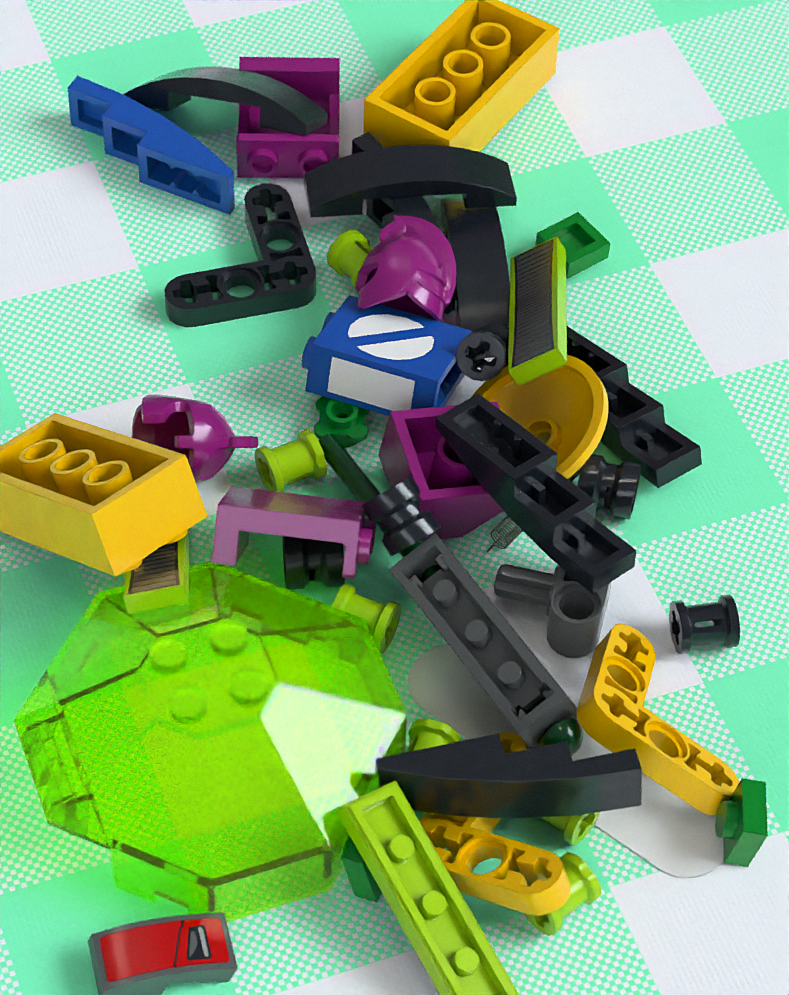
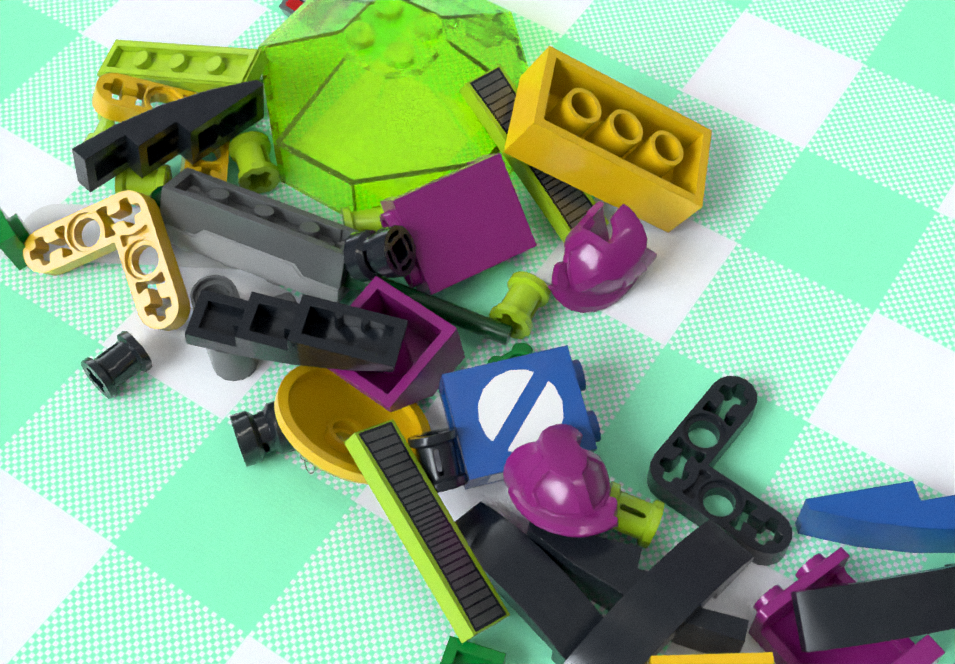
camera: 145 degrees right, 5 degrees up
(635, 420) = (311, 519): black slope -> none

